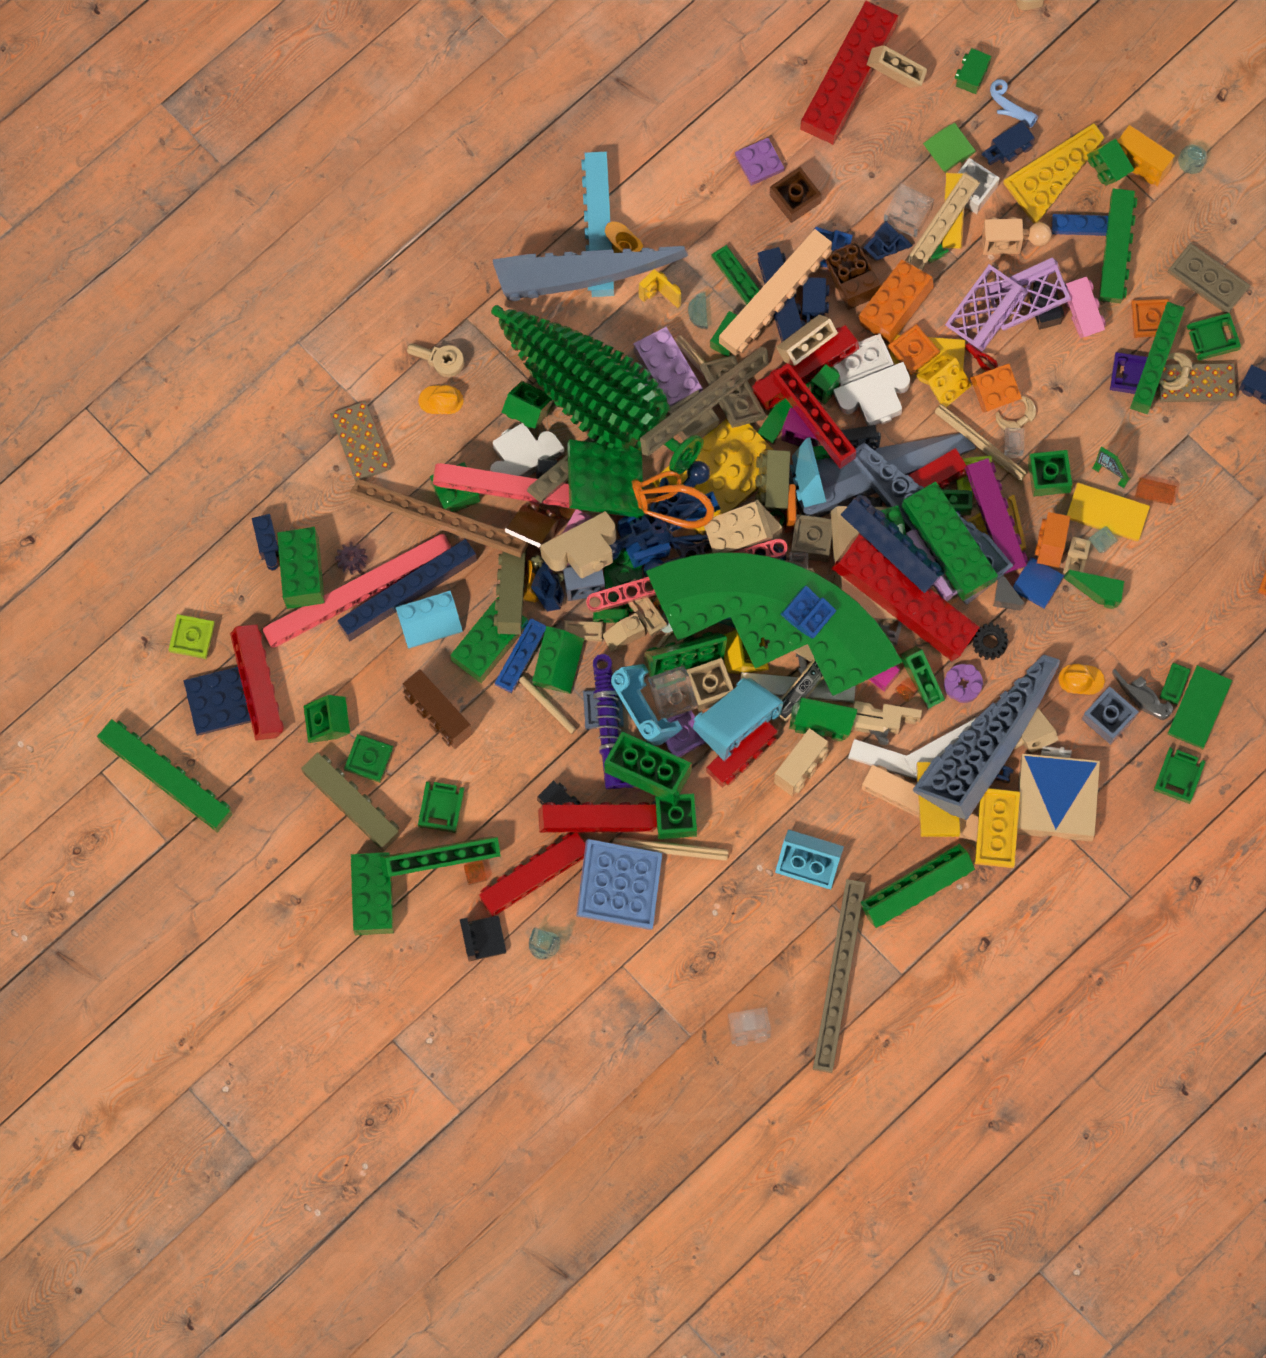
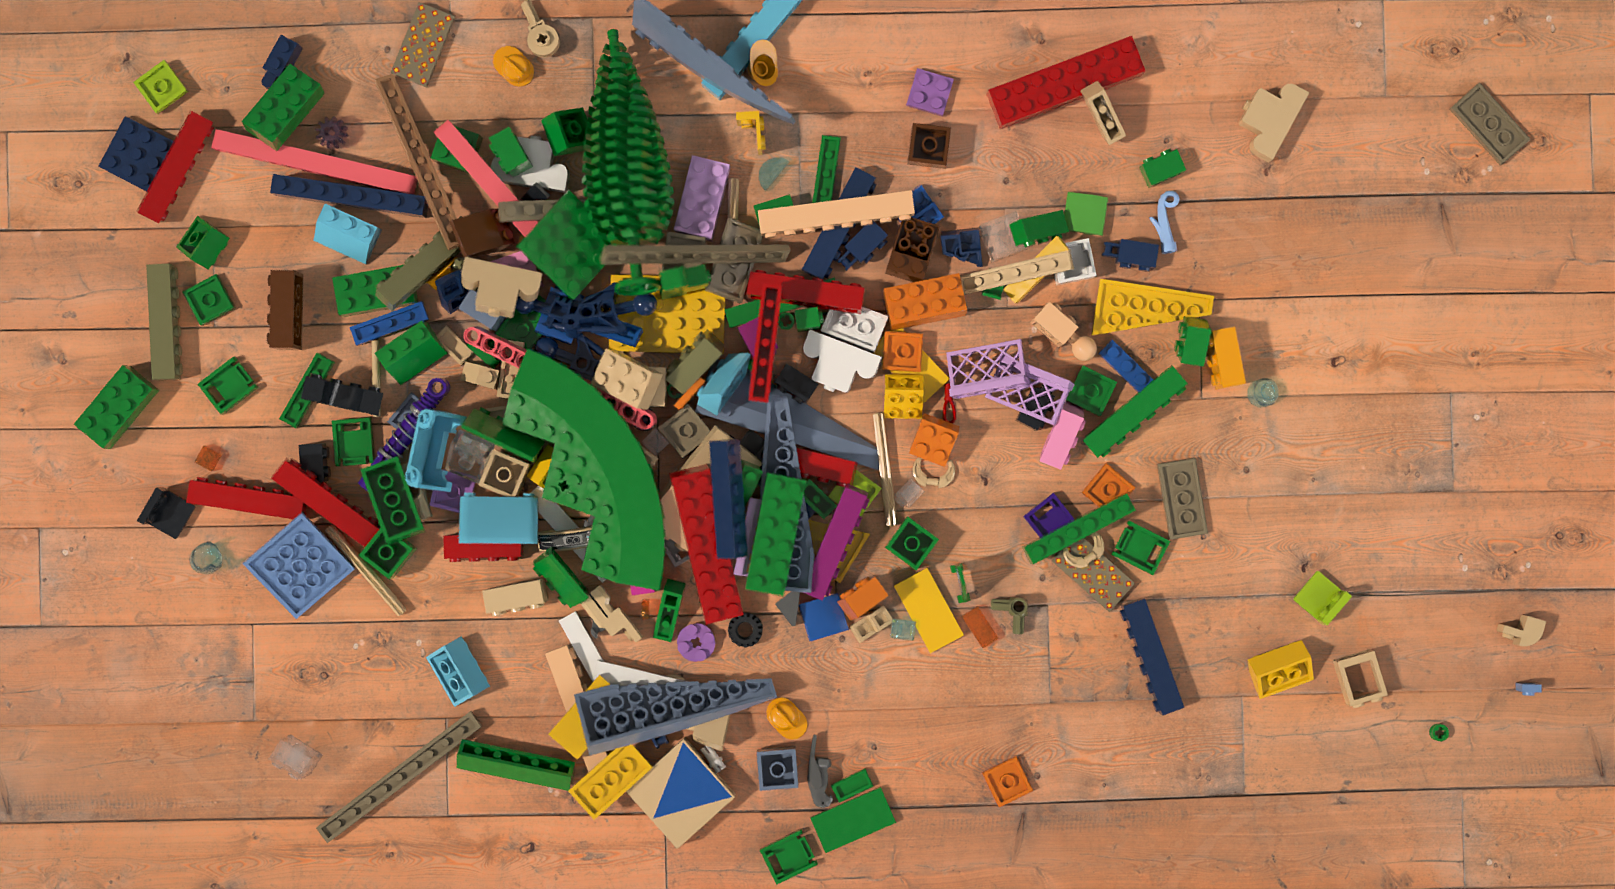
camera: 45 degrees right, 15 degrees up
(164, 775) = (46, 177): green brick -> none
(440, 856) = (183, 427): green brick -> none
(502, 449) = (510, 151): none -> green brick
(503, 758) = (298, 407): none -> green tile
(542, 731) = (342, 396): none -> black brick
(576, 767) = (353, 445): none -> green container
(673, 489) = (587, 300): orange animal -> none
(712, 427) = (682, 280): none -> green brick
(807, 340) = (822, 274): tan brick -> none
(808, 612) = (613, 495): blue slope -> none
(928, 180) = (1039, 228): none -> green brick
(1073, 260) = (1091, 391): none -> green plate
(1098, 588) = (864, 667): green slope -> none
(1161, 456) = (1018, 616): none -> olive axle

